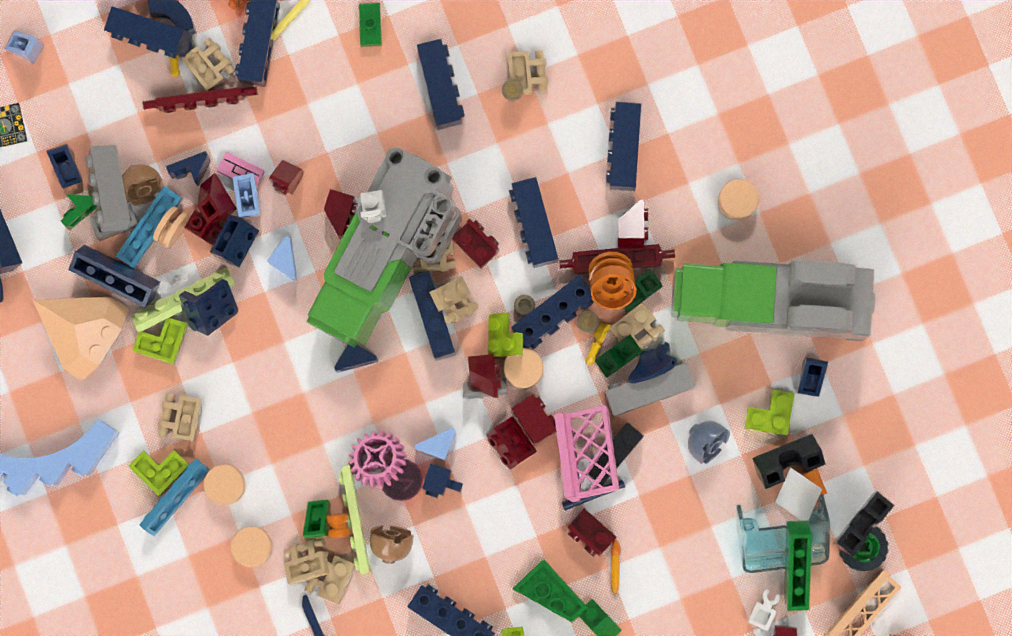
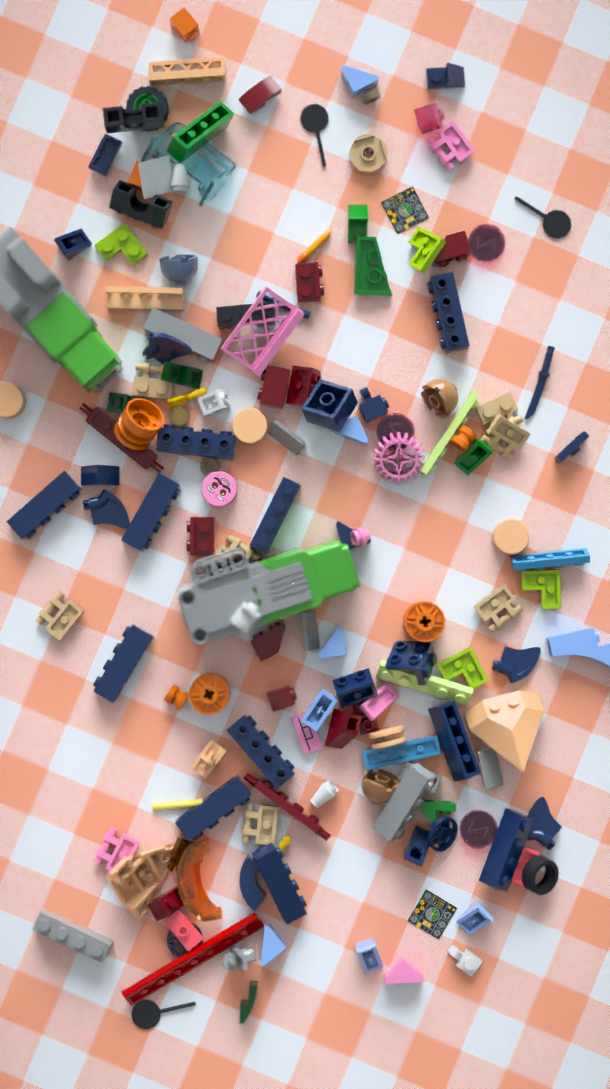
camera: 145 degrees left, 5 degrees up
(29, 227) = (478, 829): none -> clear pink tile
(56, 194) = (442, 834): none -> dark blue wheel
(65, 282) = (489, 768): none -> light grey slope
(122, 388) = (516, 663): none -> dark blue arm
(179, 137) = (324, 793): none -> white cone
(195, 164) = (331, 764): dark blue slope -> none
(203, 244) = (374, 707): none -> bright pink tile
(228, 359) = (413, 616): none -> orange wheel
(242, 607) = (572, 448): none -> dark blue plate
(251, 546) = (531, 480): light nougat head -> none
(262, 120) = (260, 751): none -> dark blue brick
(298, 75) = (208, 758): none -> light nougat hips
(313, 251) = (310, 630): none -> light grey slope
(345, 362) = (359, 537): none -> bright pink plate
(353, 135) = (212, 682): none -> orange wheel
(370, 24) = (129, 748): green plate -> none
(371, 98) = (176, 697): none -> orange wheel
(452, 293) = (251, 517): tan plate -> none
(473, 445) = (329, 405): none -> dark blue brick
(483, 374) = (278, 445): dark red slope -> none
(498, 294) = (219, 489): none -> bright pink head
(500, 341) = (247, 457): lime plate -> none
(512, 90) = (80, 612): dark tan tile -> none
(571, 192) = (107, 509): none -> dark blue arm
(571, 360) = (214, 401): none -> white bracket
(604, 213) = (100, 475): none -> dark blue slope
(631, 227) = (92, 447): slope -> none
(709, 389) = (145, 298): none -> light nougat fence
(762, 614) = (250, 128): white plate -> none
(777, 513) = (180, 179): none -> white cone
(859, 475) = (105, 154): none -> dark blue plate

